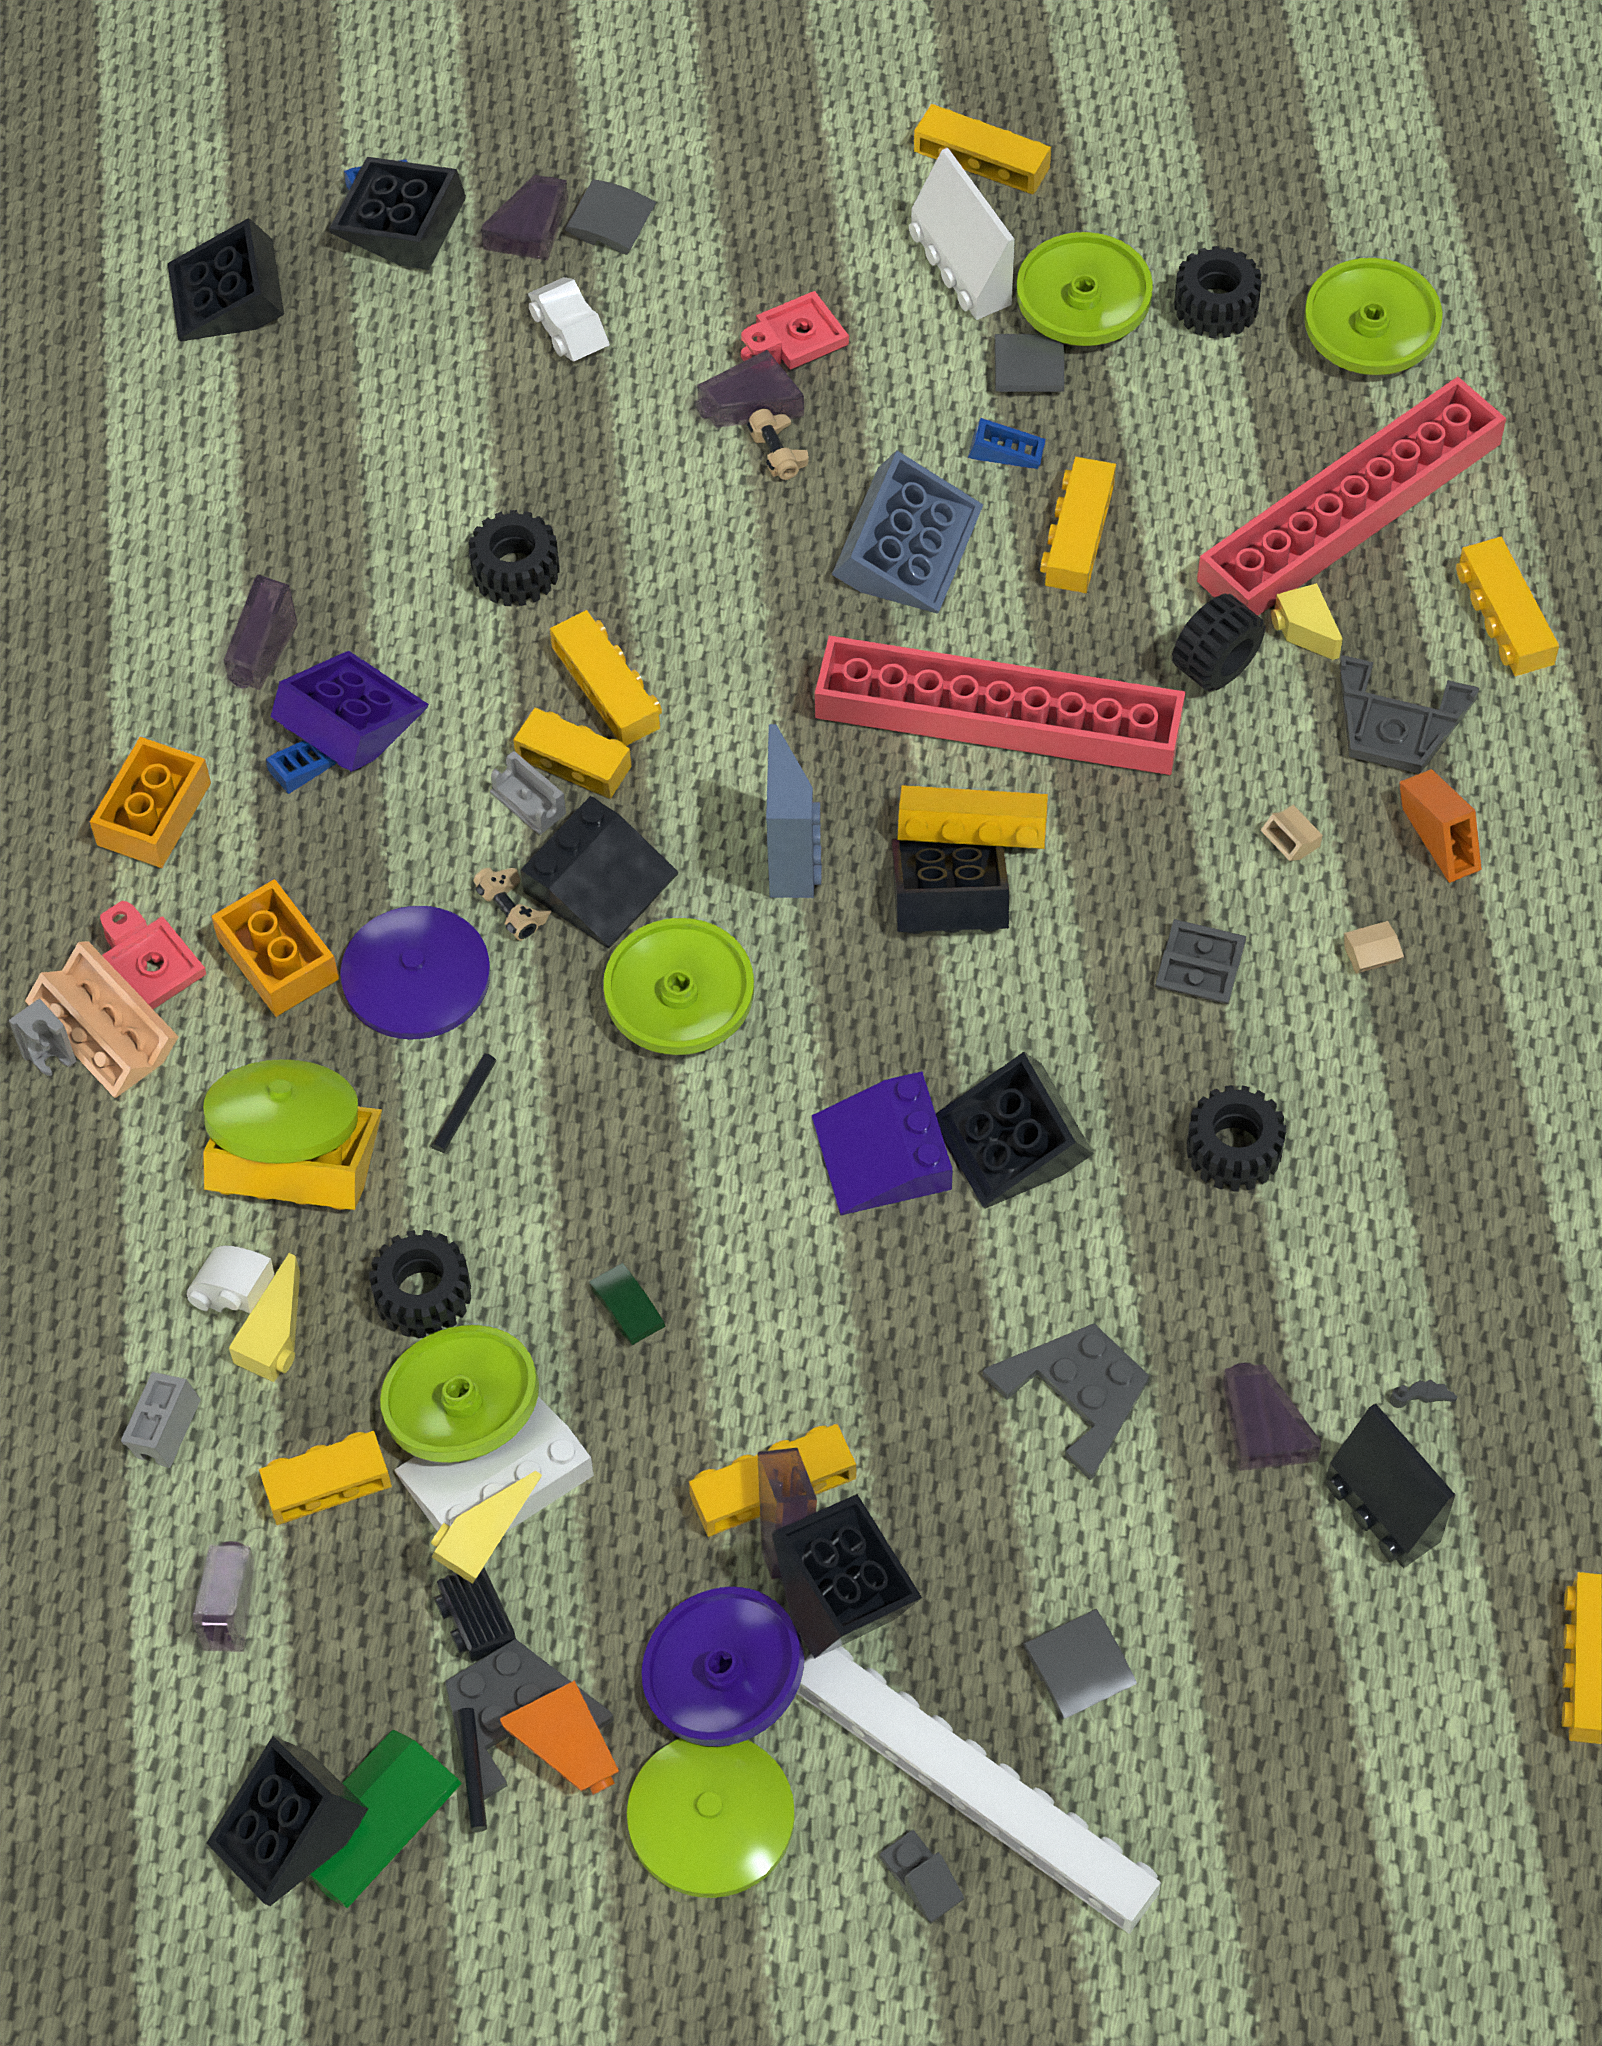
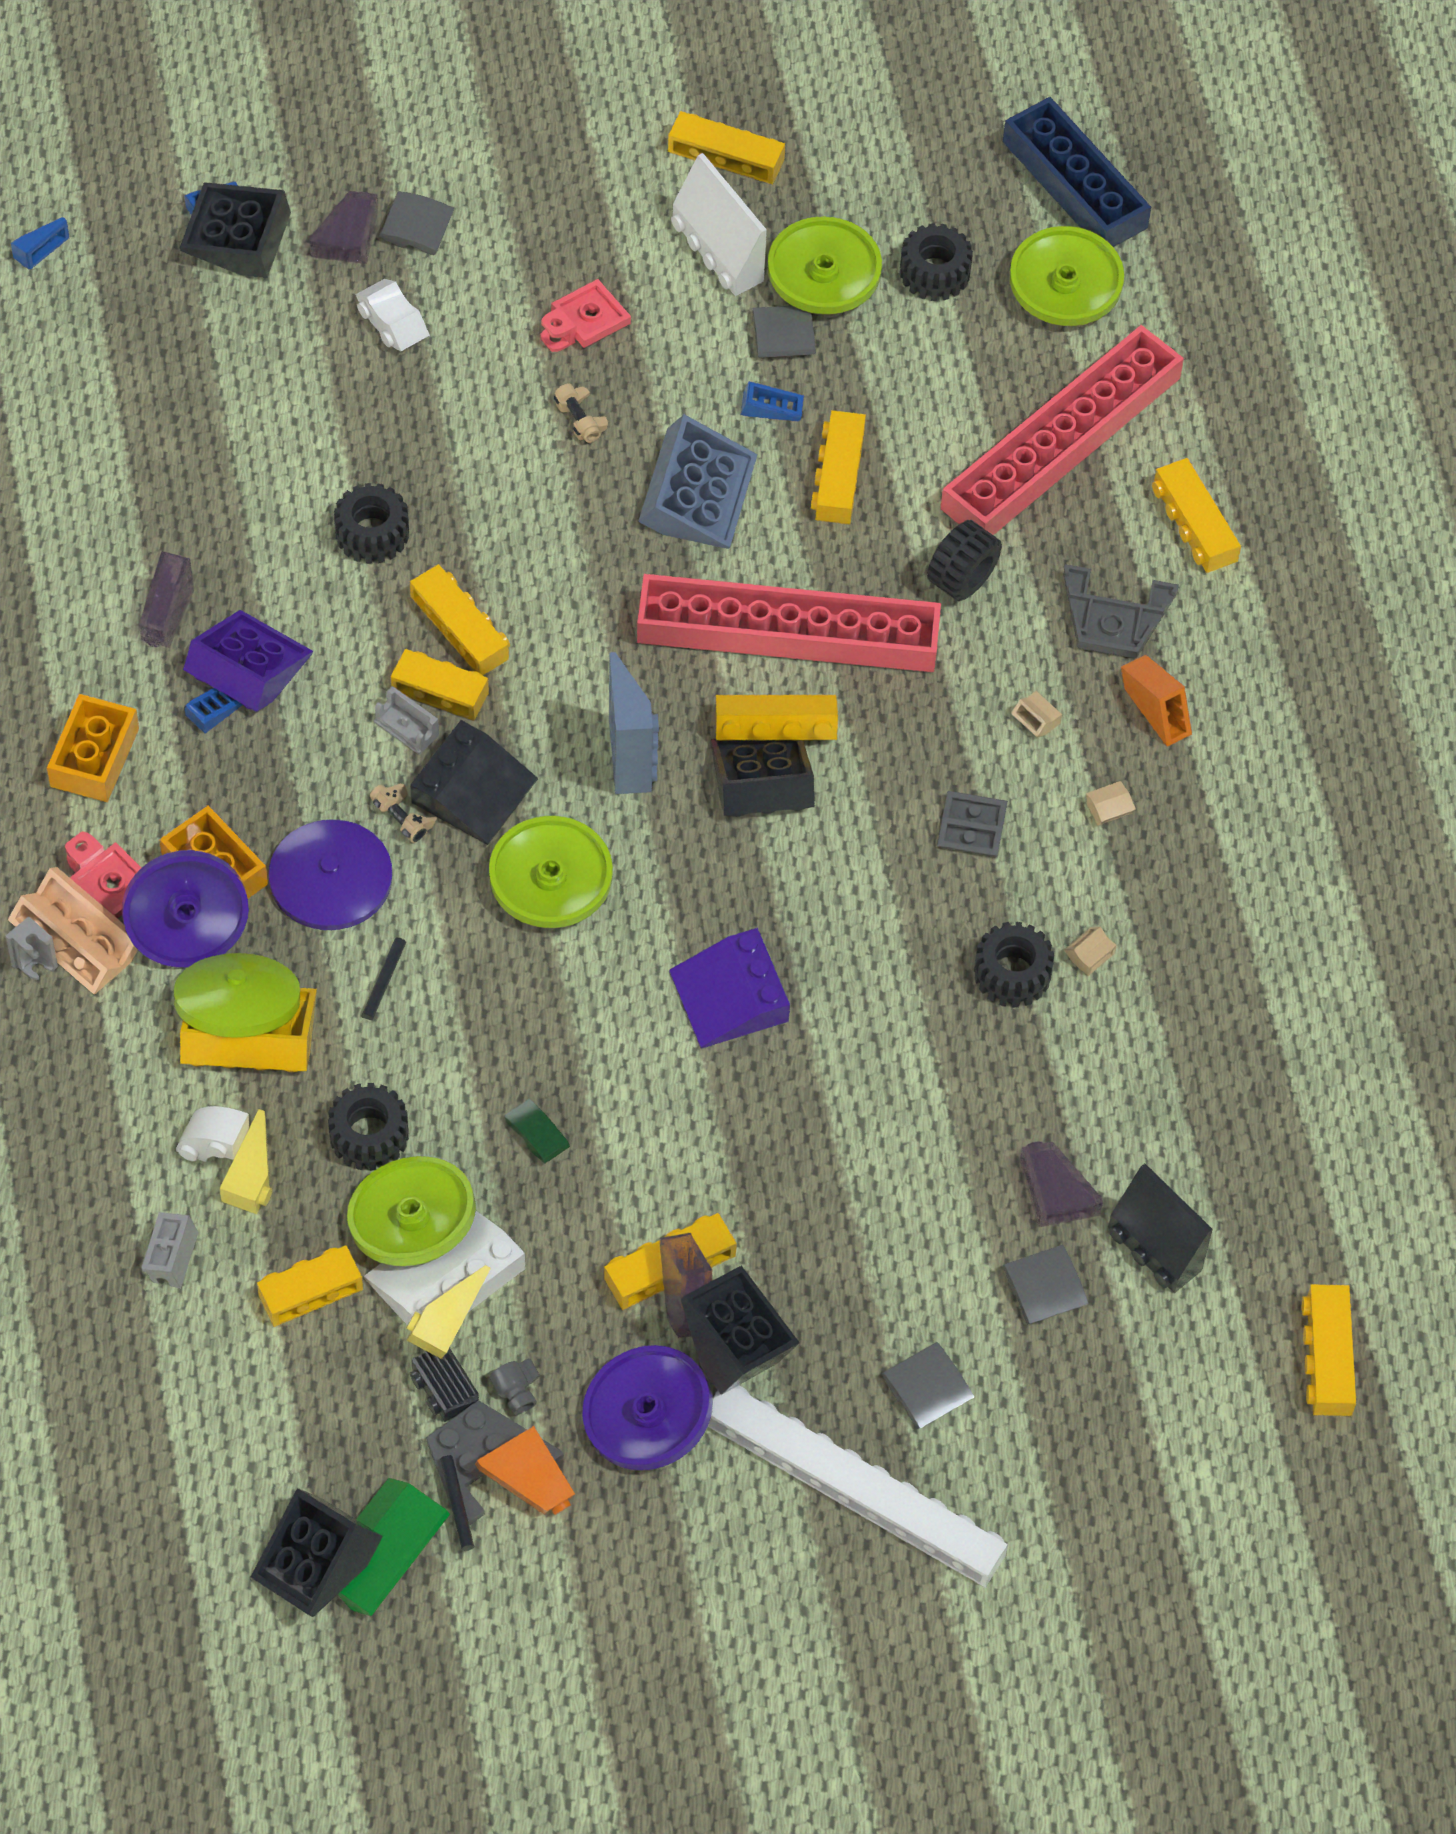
camera: 10 degrees left, 0 degrees up
(171, 216) = (38, 244): none -> blue slope
(224, 1597) = (242, 1385): slope -> none
(226, 284) = (95, 300): black slope -> none
(228, 1000) = (185, 908): none -> dark purple dish
(559, 1617) = (511, 1383): none -> dark grey piece
(710, 1817) = (649, 1525): lime dish -> none
(746, 388) = (551, 367): clear purple slope -> none
(922, 1876) = (820, 1556): dark grey slope -> none
(1012, 1132) = (834, 972): black slope -> none
(1089, 1376) = (914, 1162): dark grey wing -> none
(1240, 1545) = (1045, 1284): none -> dark grey slope
(1307, 621) = (1034, 537): light yellow slope -> none
(1334, 1126) = (1091, 950): none -> tan piece
(1394, 197) = (1076, 172): none -> dark blue brick
(1425, 1391) = (1180, 1154): dark grey piece -> none

